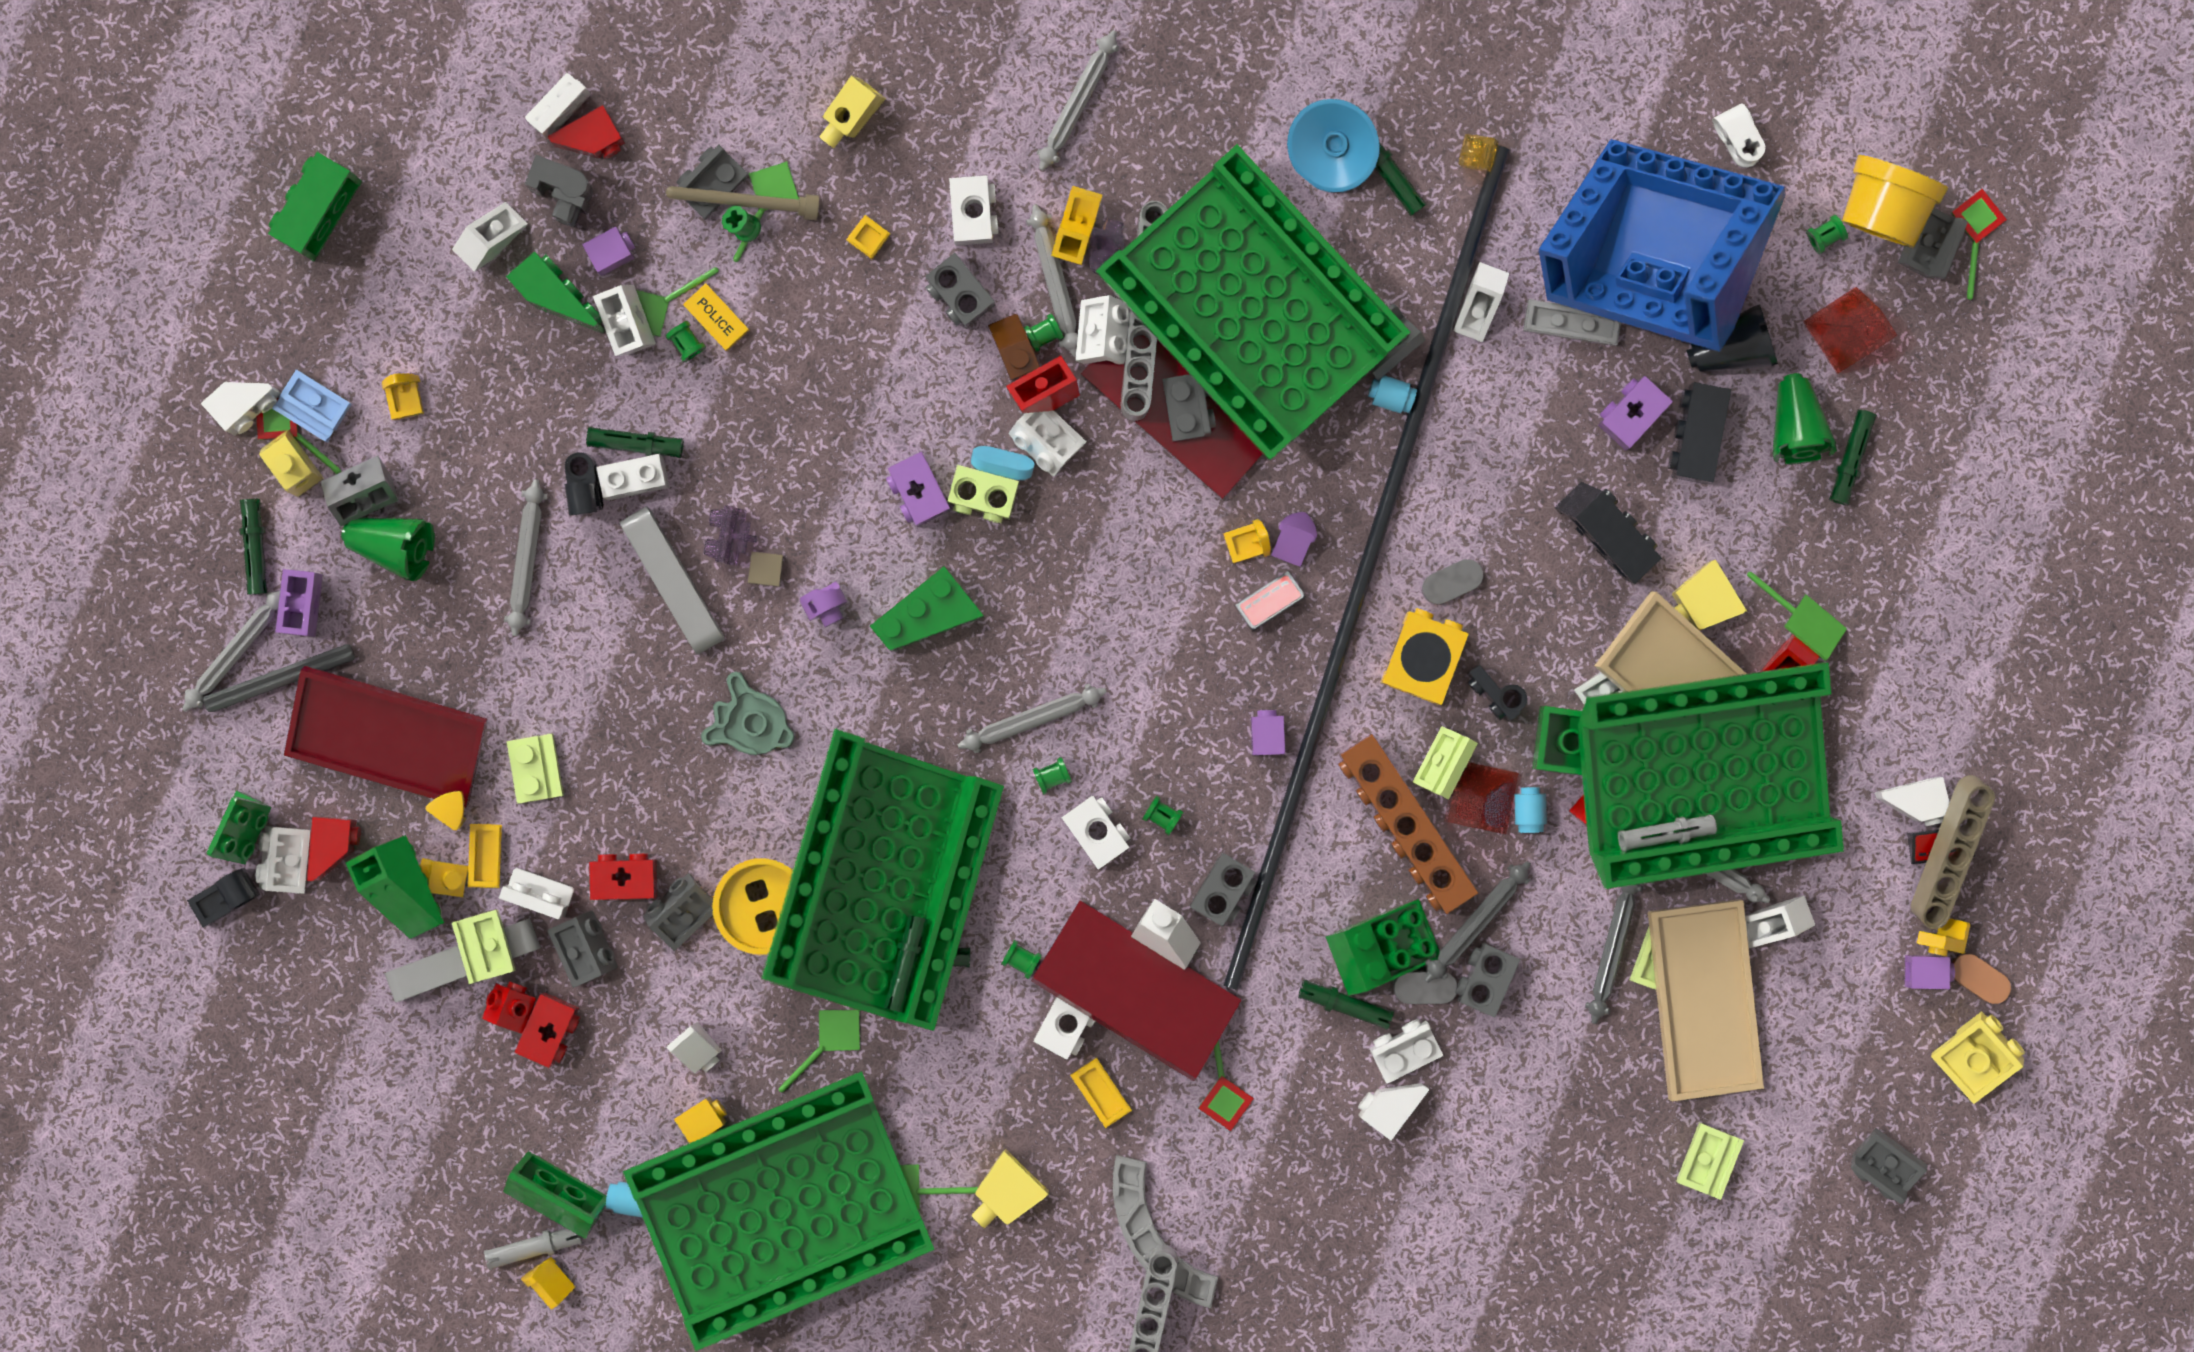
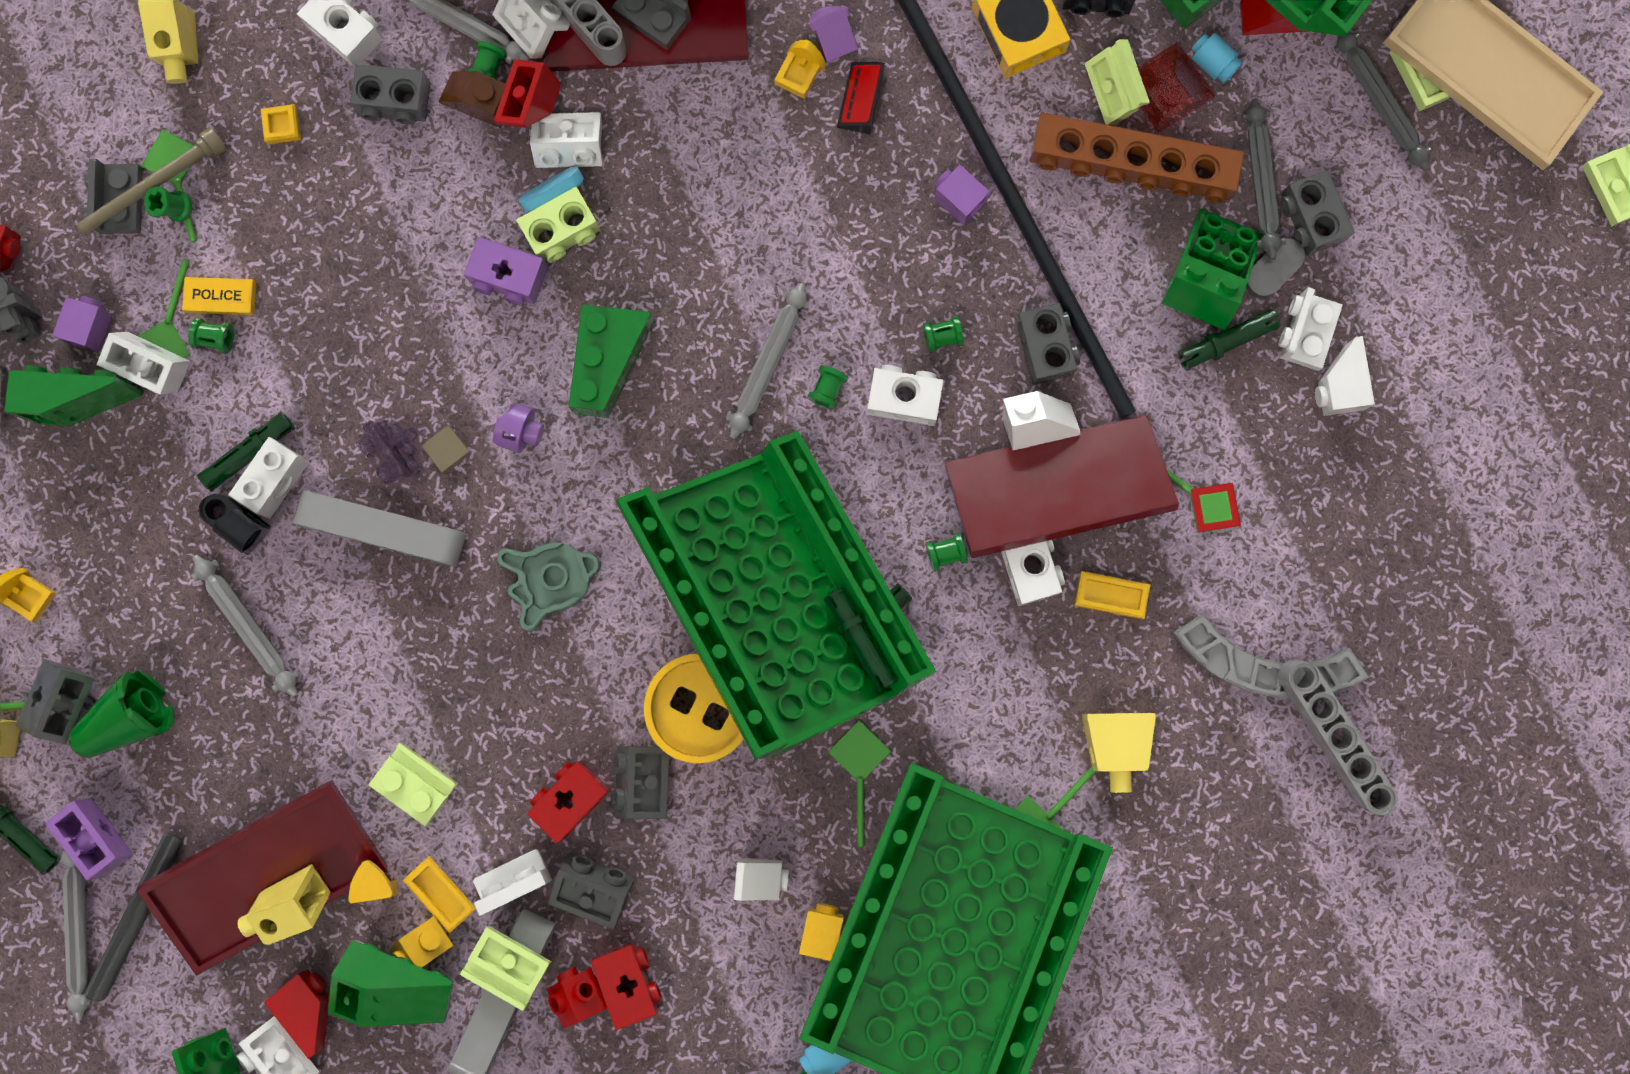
camera: 40 degrees left, 5 degrees down
(383, 772) = (286, 907): none -> light yellow torso

